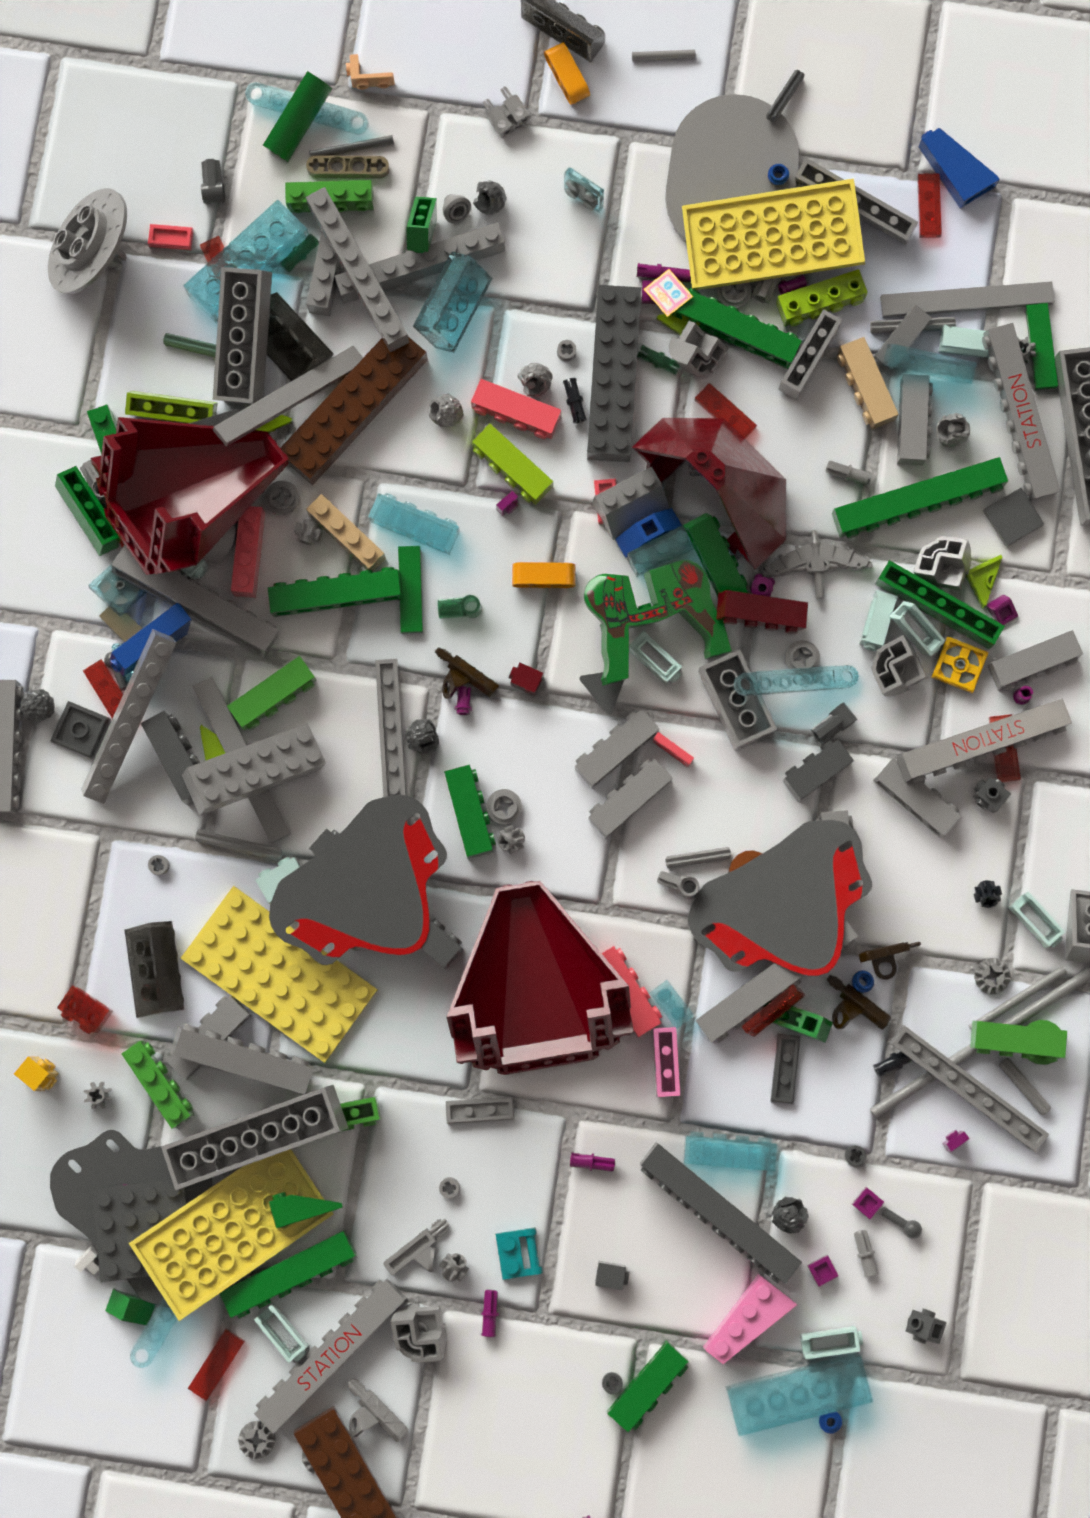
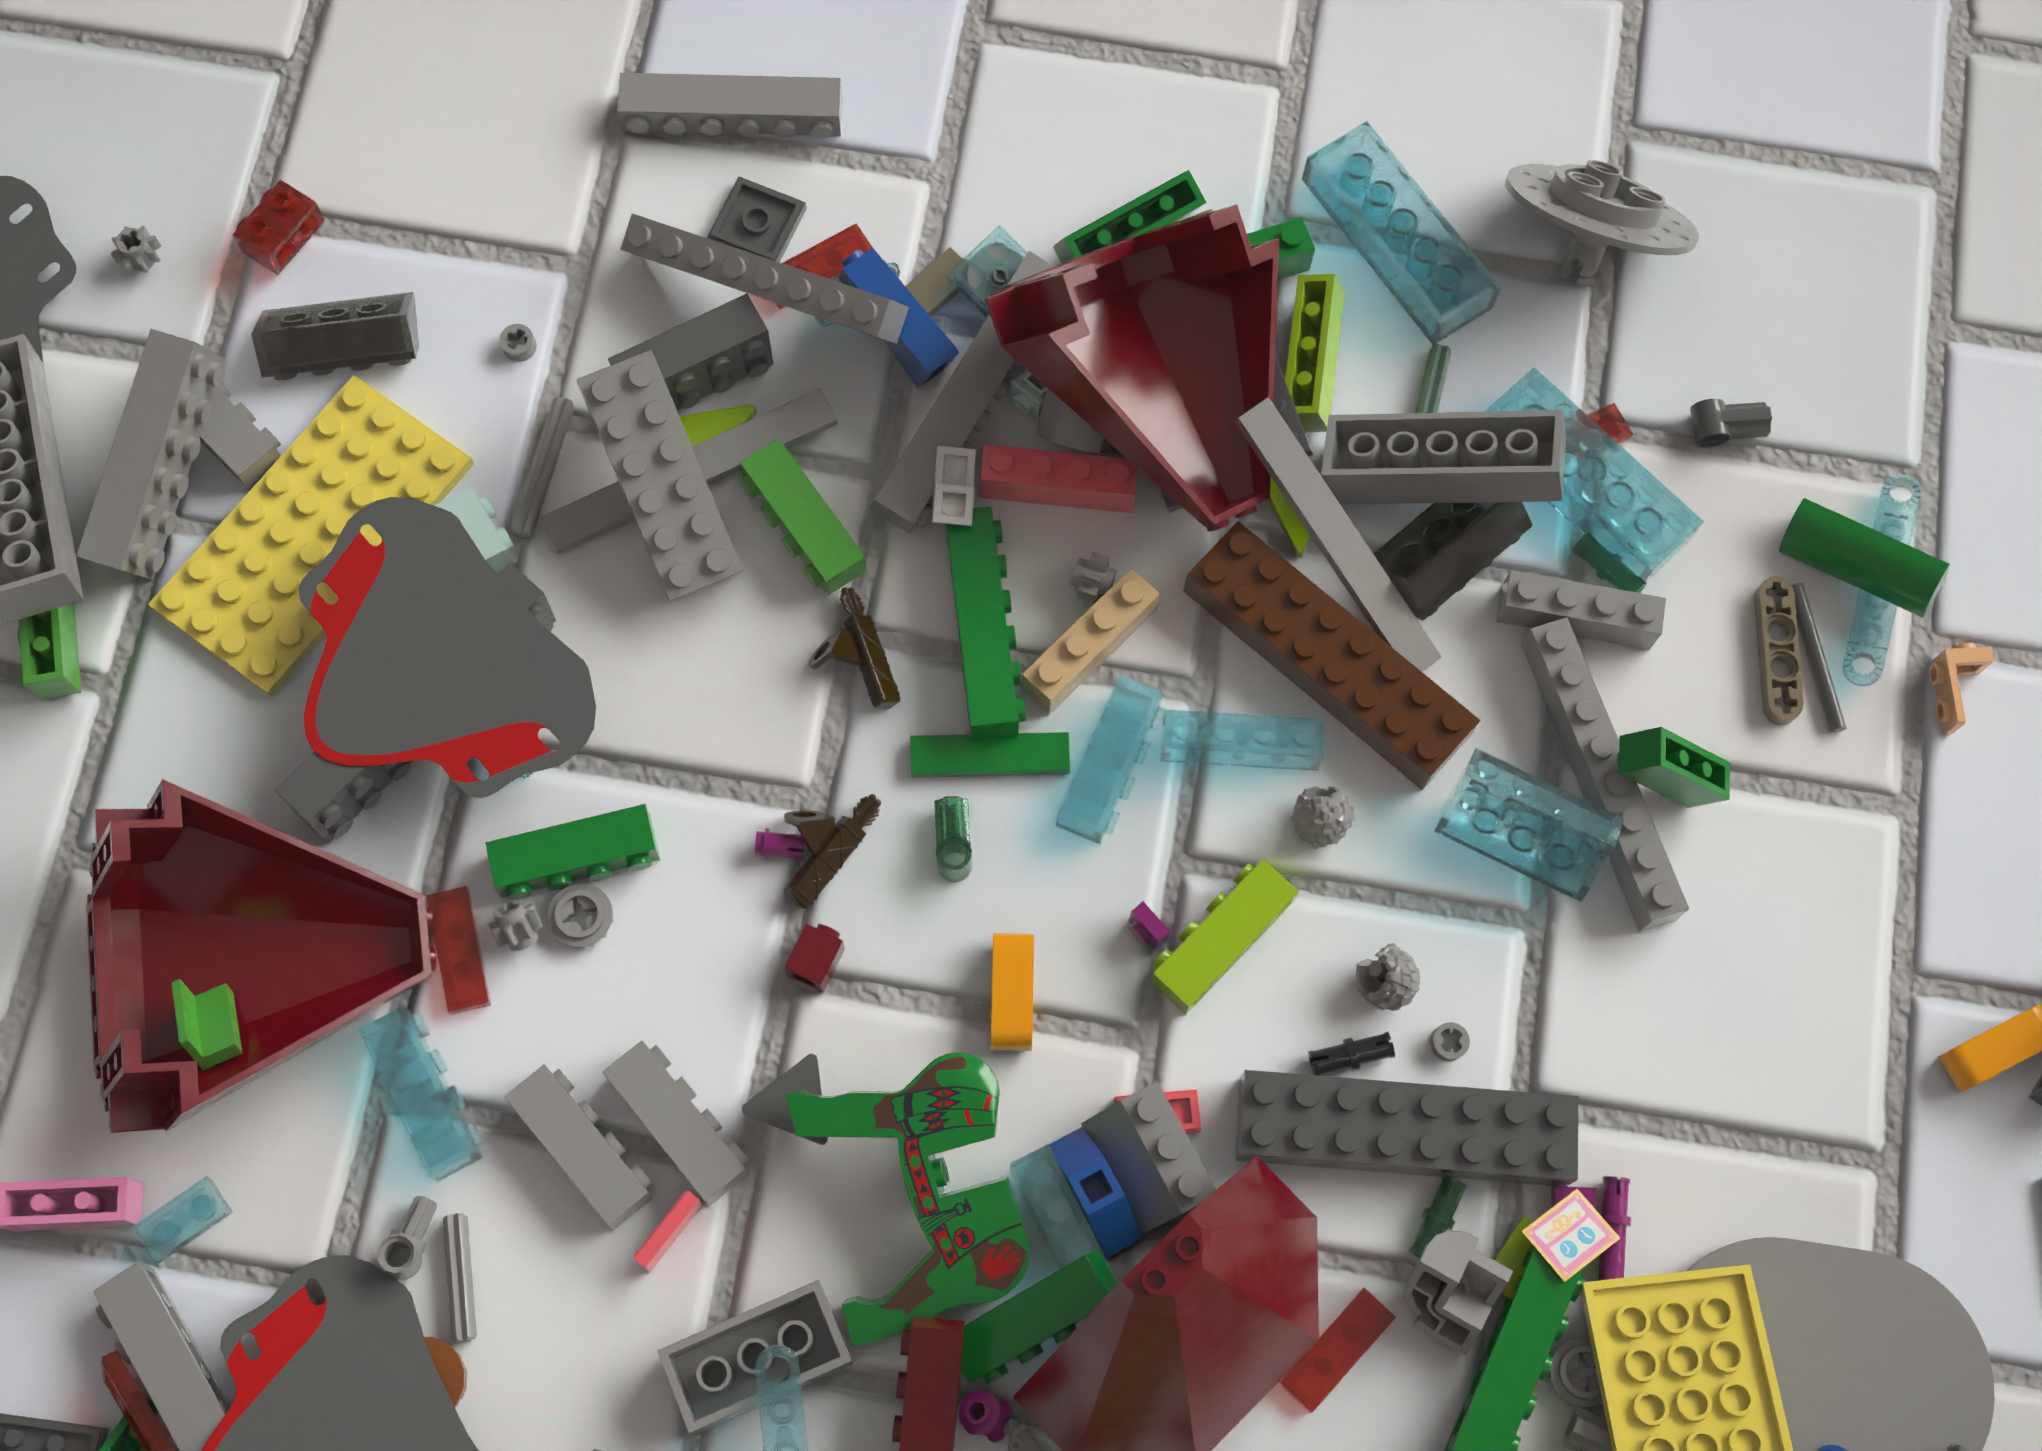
camera: 85 degrees right, 10 degrees down
(37, 705) = (795, 151): dark grey piece -> none
(37, 1073) = (176, 153): yellow brick -> none
(94, 357) = (1400, 233): none -> clear light blue brick
(157, 1084) = (114, 351): bright green brick -> none
(170, 237) = (1625, 358): coral tile -> none
(257, 606) = (953, 486): none -> white slope
(274, 492) = (1169, 525): light grey gear -> none
(346, 195) = (1718, 615): bright green brick -> none
(349, 661) = (860, 646): none -> dark brown piece
(357, 269) = (1575, 648): light grey brick -> none
(390, 727) = (722, 718): light grey plate -> none
(403, 452) = (1242, 740): none -> clear light blue brick
(422, 736) = (714, 769): dark grey piece -> none
(456, 208) = (1713, 838): light grey brick -> none
(479, 1110) = (33, 869): light grey tile -> none
(490, 197) = (1738, 901): dark grey piece -> none
(507, 116) = (1905, 937): light grey piece -> none
(515, 409) = (1330, 945): coral brick -> none
(523, 871) = (458, 950): none -> clear red tile
(569, 996) = (207, 1024): none -> bright green panel
(583, 189) = (1770, 1067): piece -> none
(603, 883) = (421, 1093): none -> clear light blue brick
(642, 1014) = (204, 1141): coral brick -> none
(655, 658) = (846, 1200): light aqua window -> none

